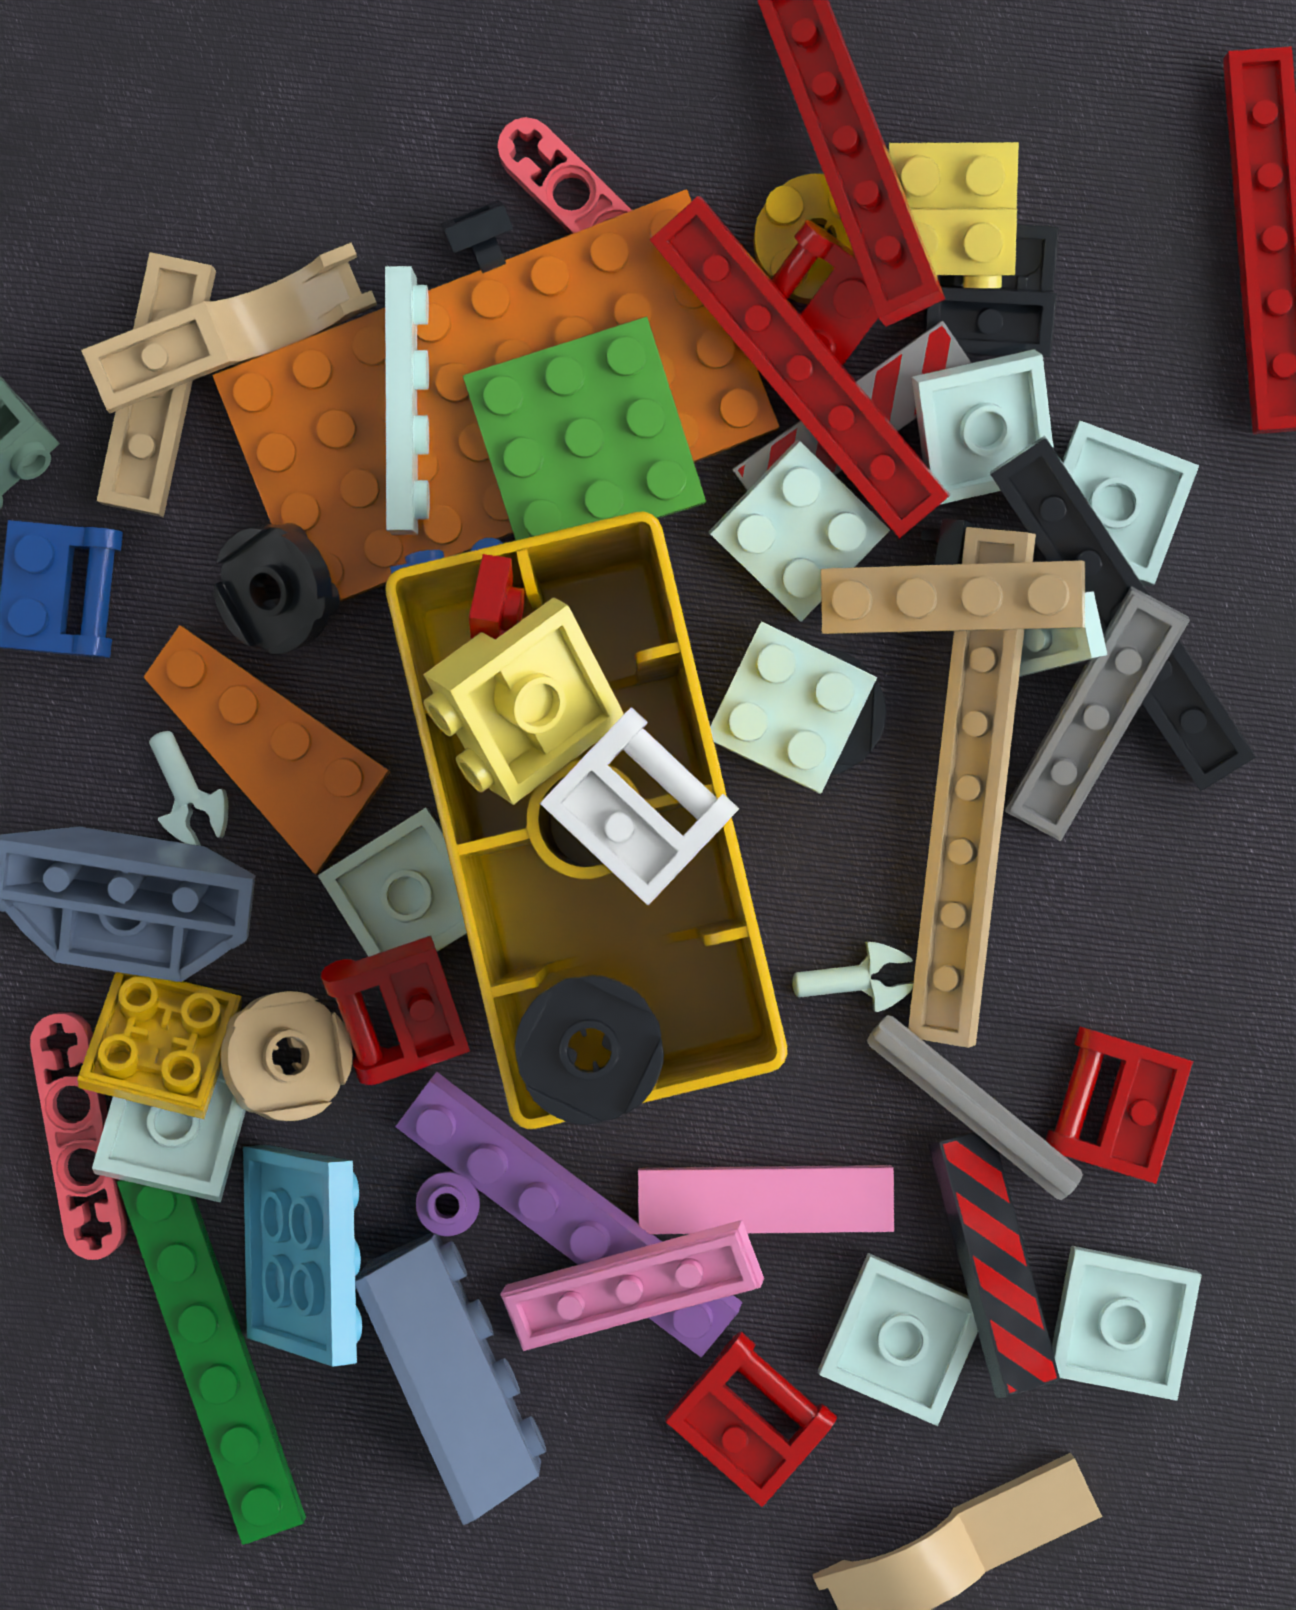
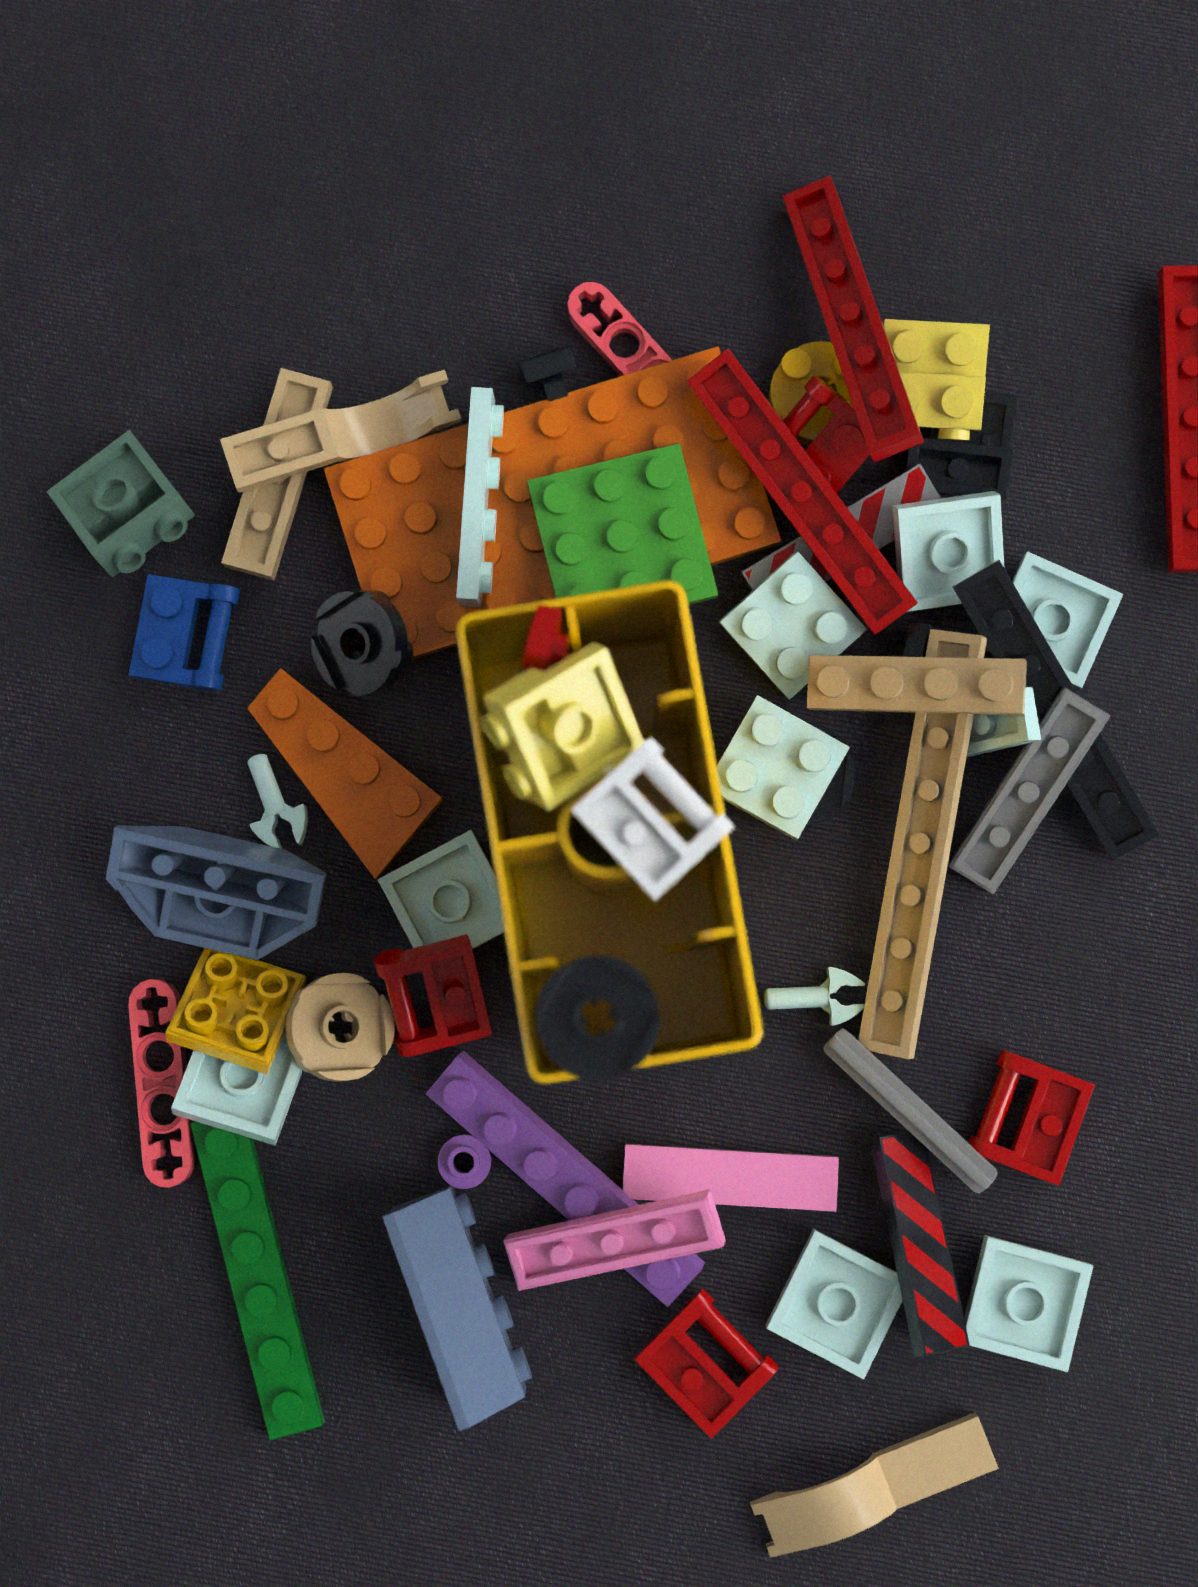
camera: 10 degrees right, 5 degrees down
(301, 1253) = (340, 1191): medium azure plate -> none

